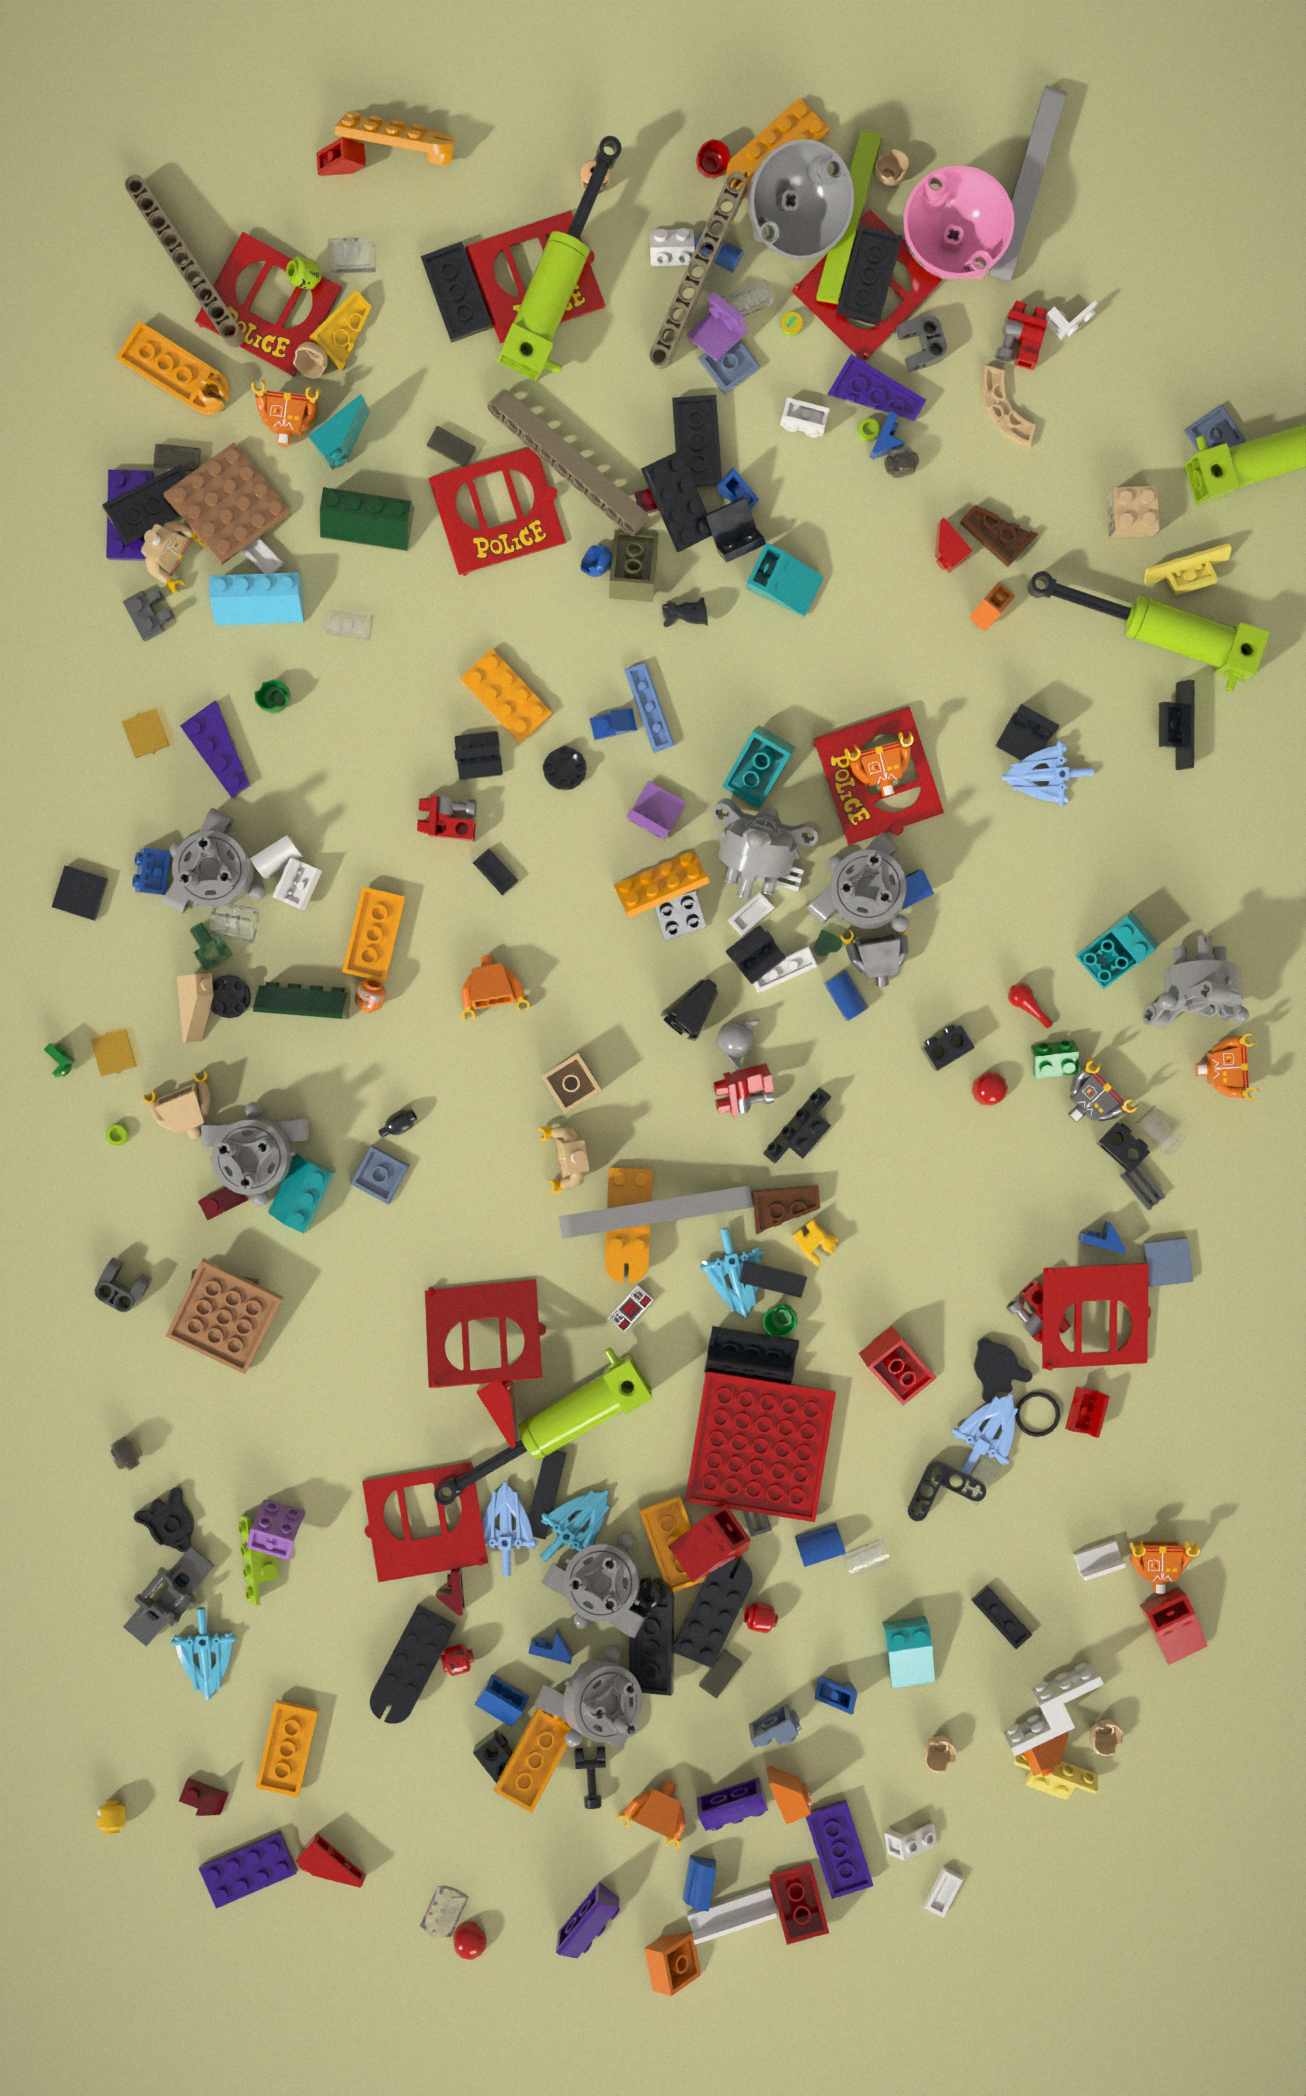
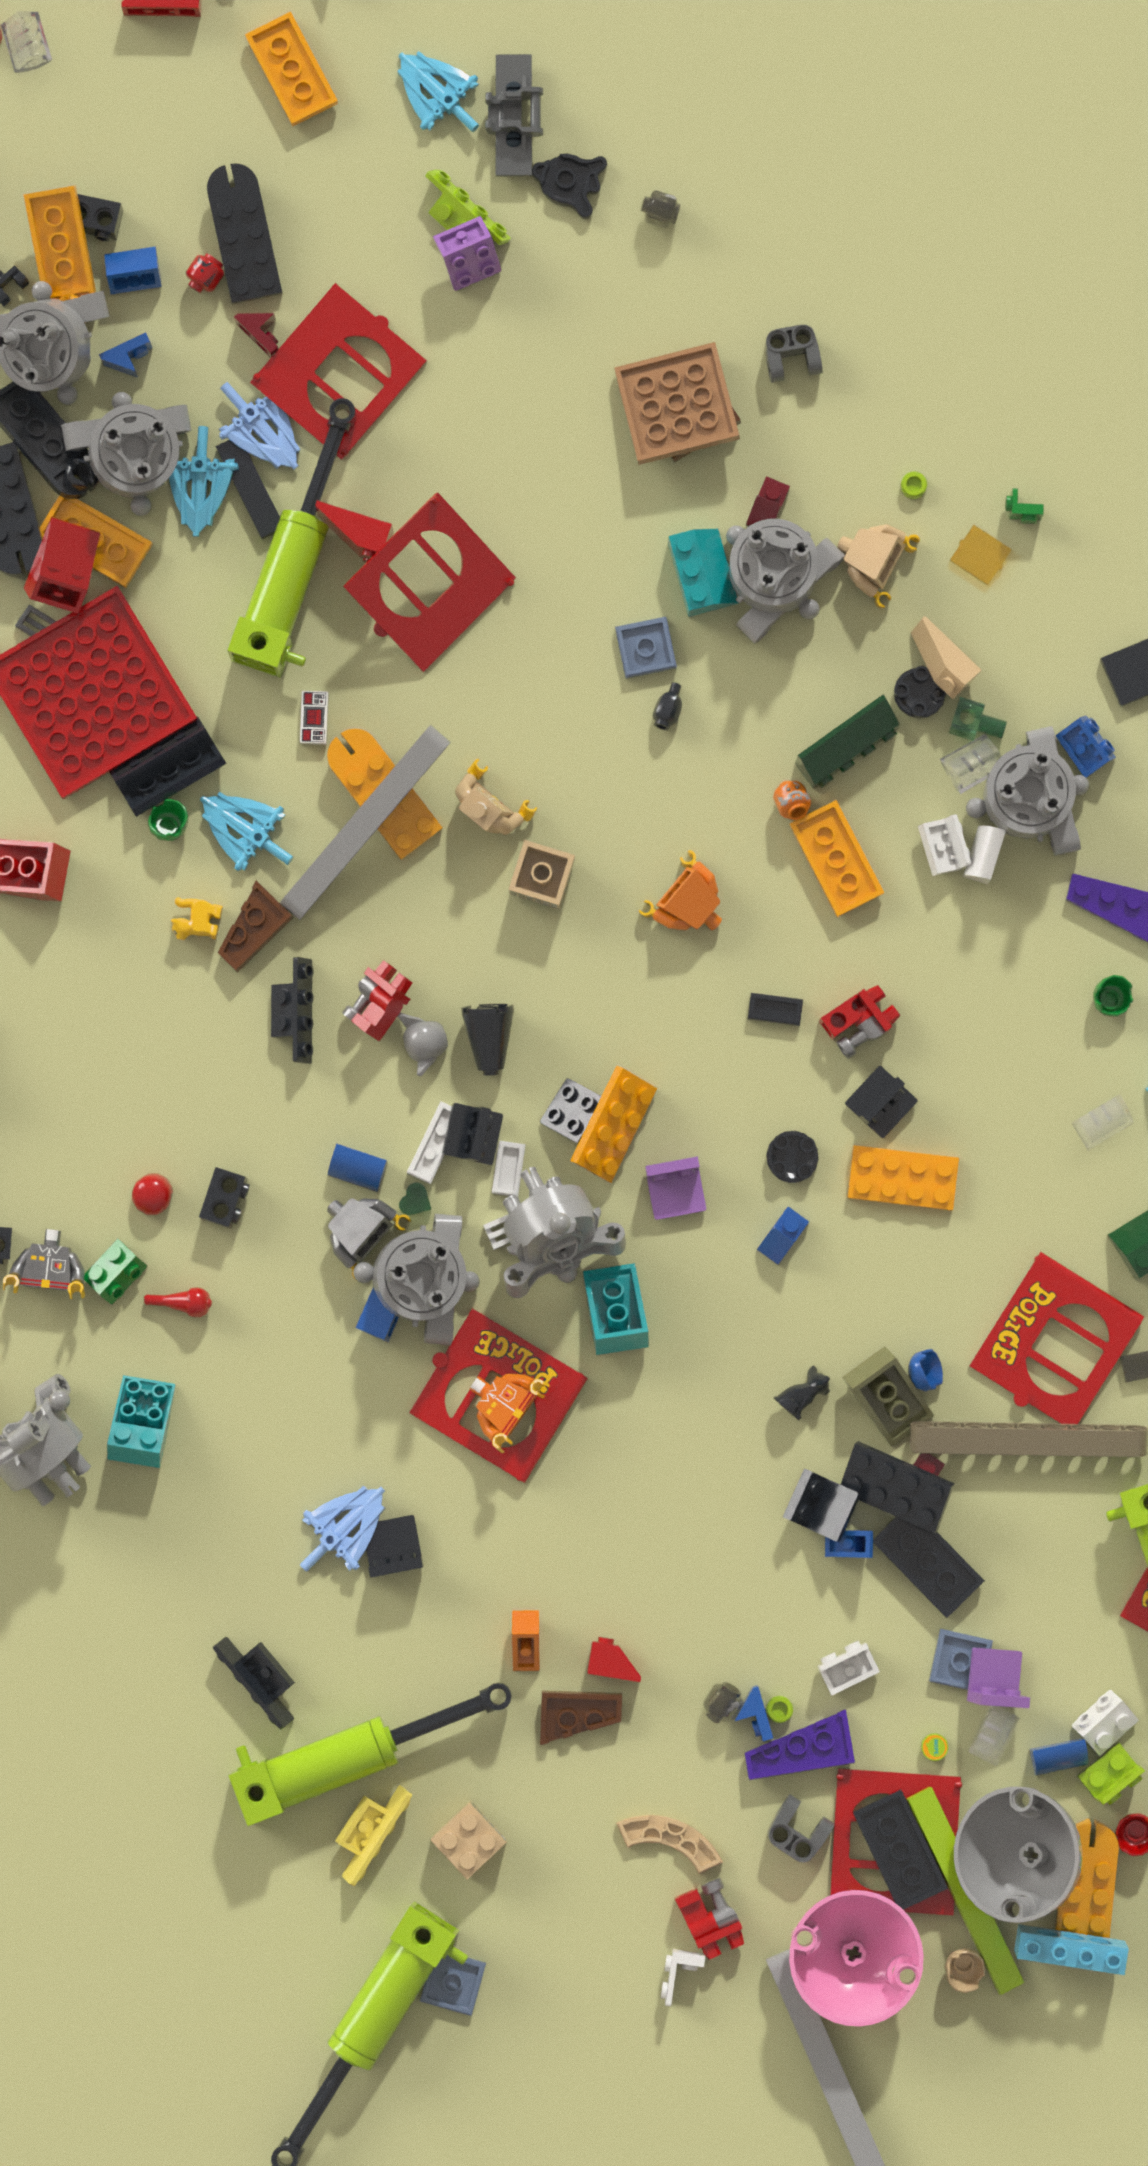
camera: 140 degrees right, 5 degrees down
(649, 707) = (763, 1279): medium blue tile -> none
(694, 206) = (1111, 1775): none -> lime bracket
(698, 259) = (1056, 1725): dark tan beam -> none
(772, 1279) = (207, 852): black tile -> none
(784, 580) = (737, 1499): teal slope -> none
(814, 115) = (1071, 1949): none -> medium azure brick

